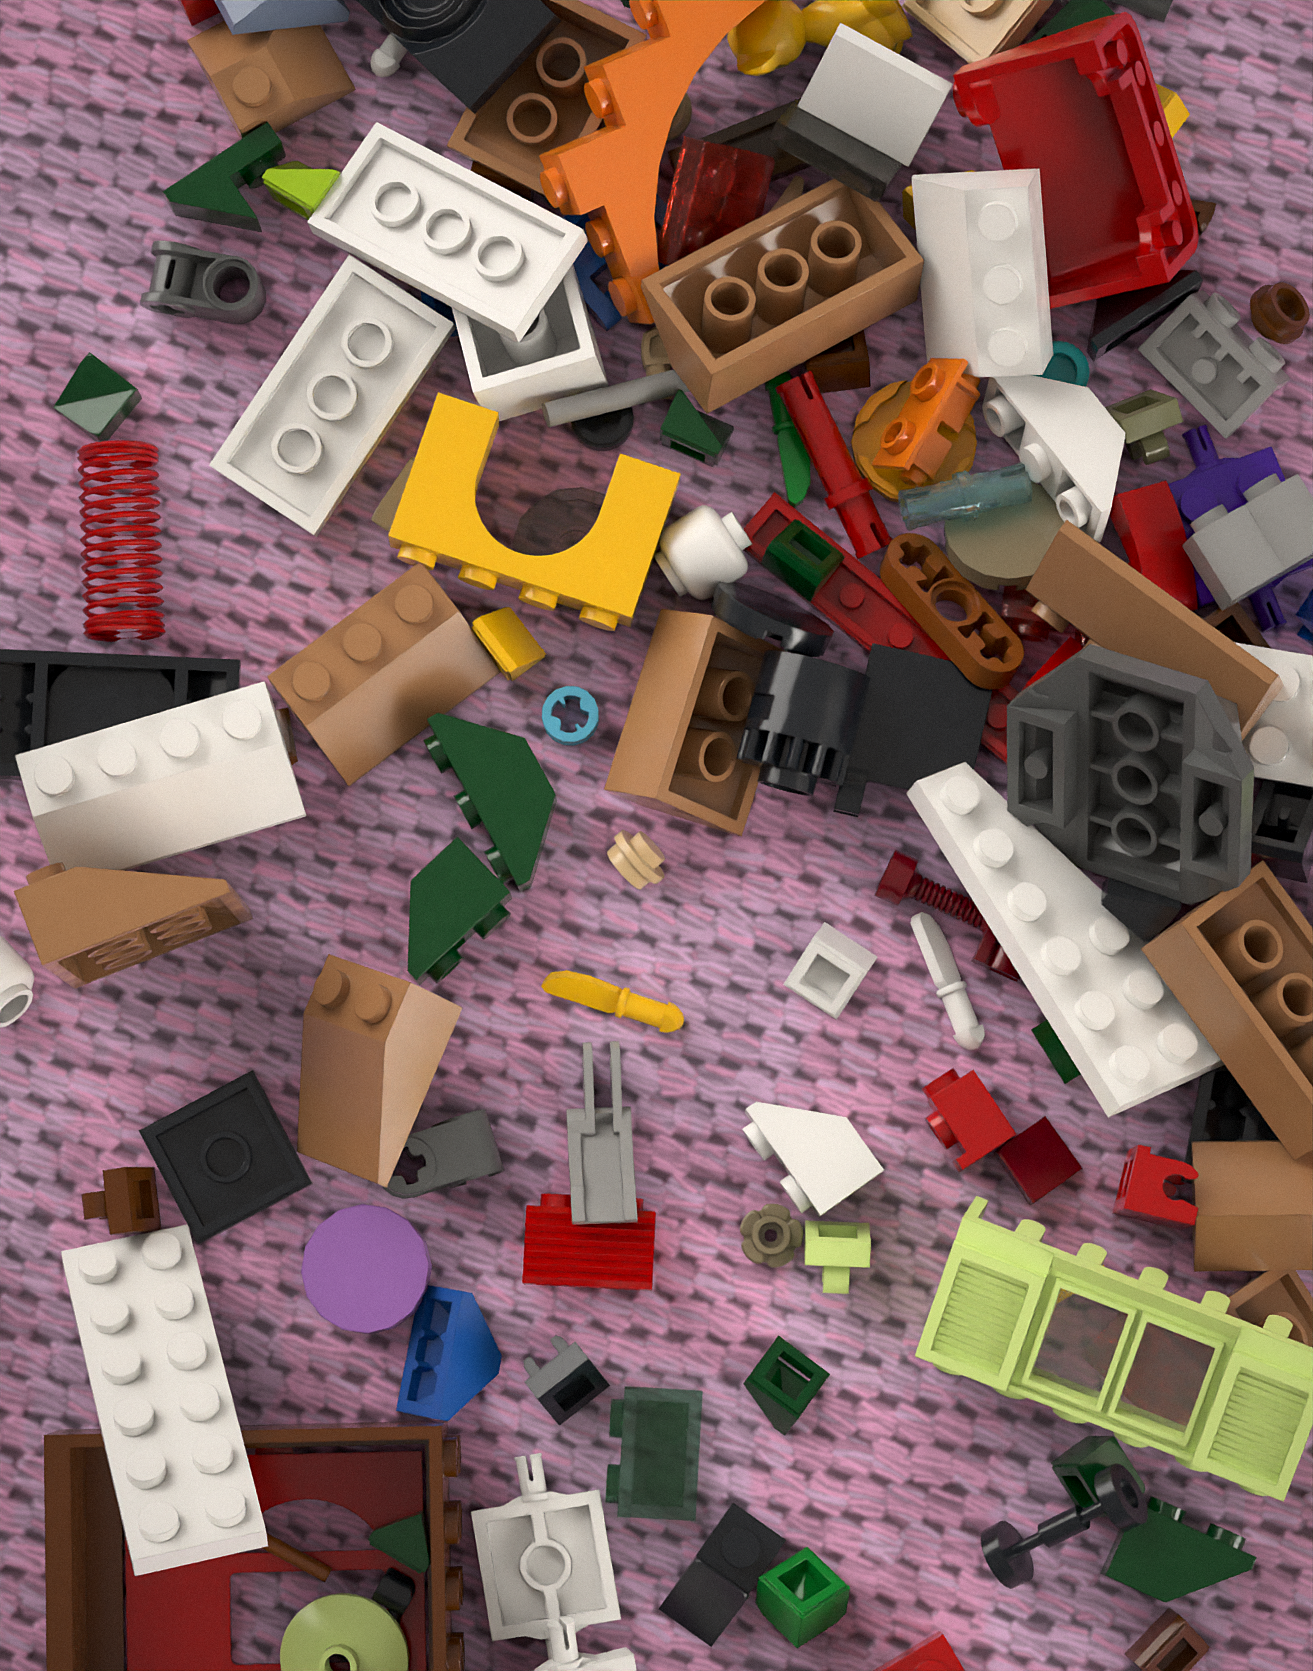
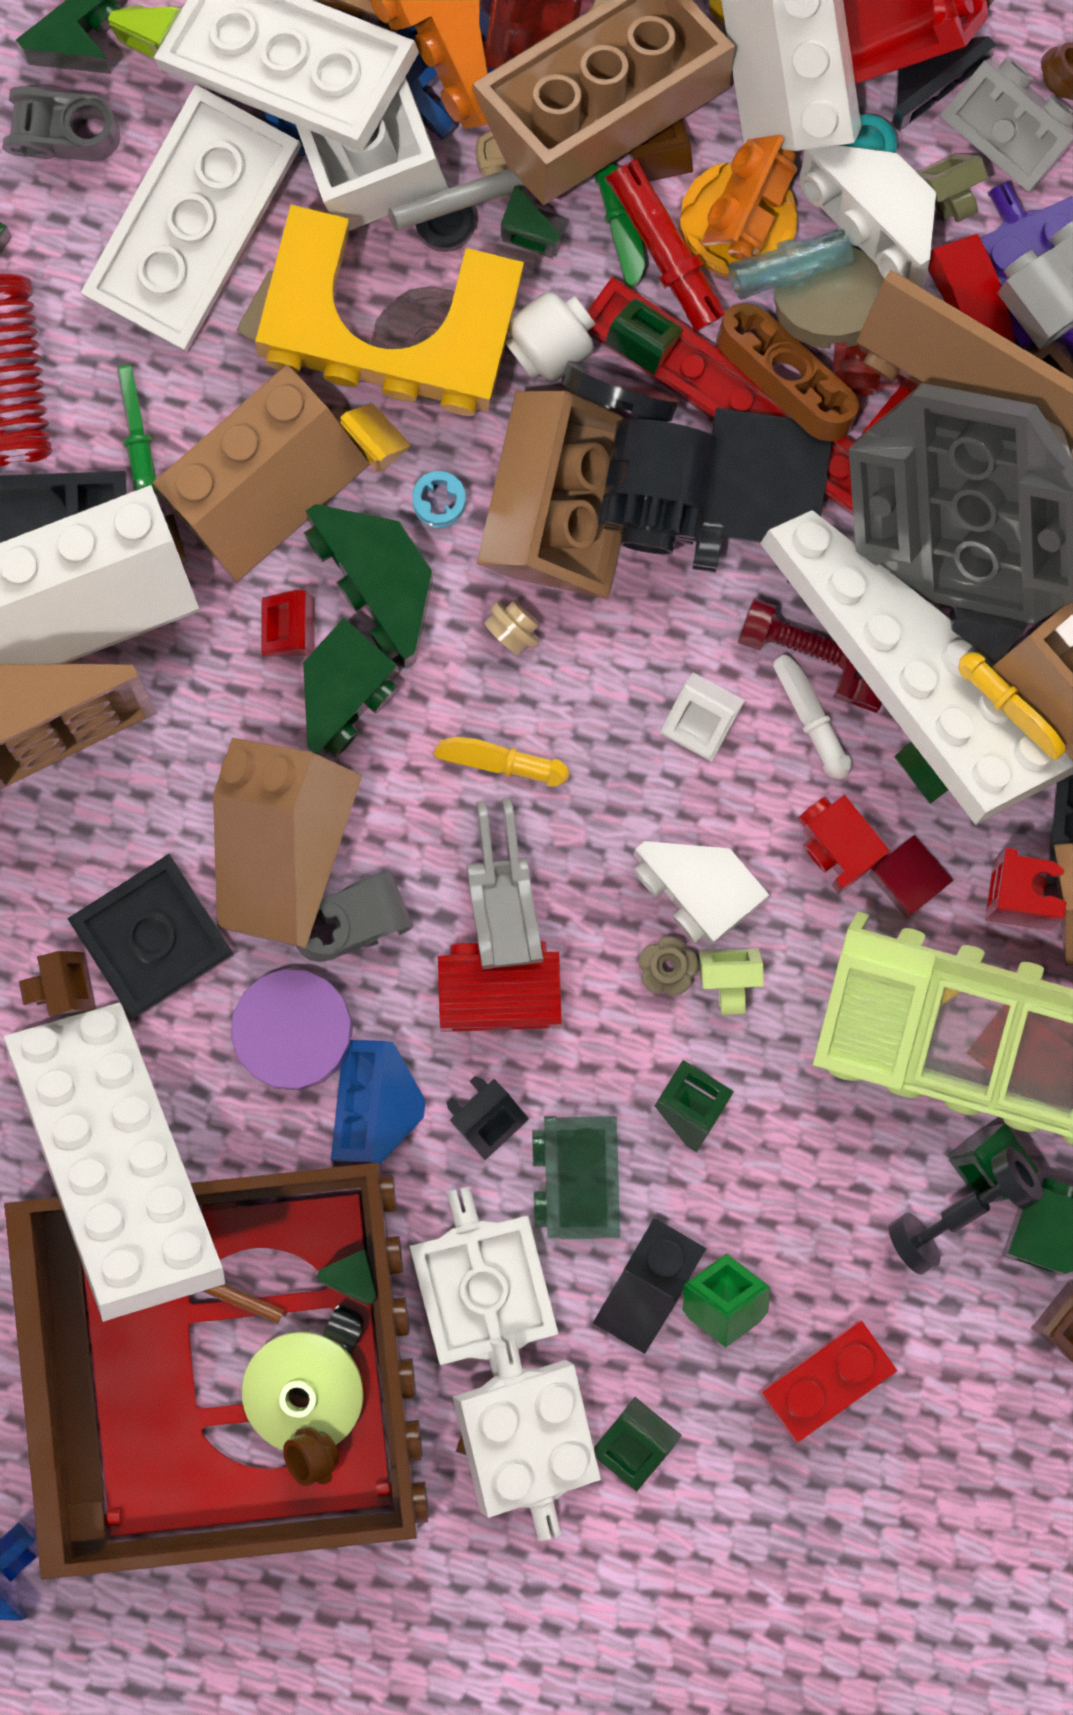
camera: 10 degrees left, 0 degrees up
(256, 630) = (137, 443): none -> green piece
(399, 836) = (288, 624): none -> red slope
(1151, 982) = (1005, 698): none -> yellow piece

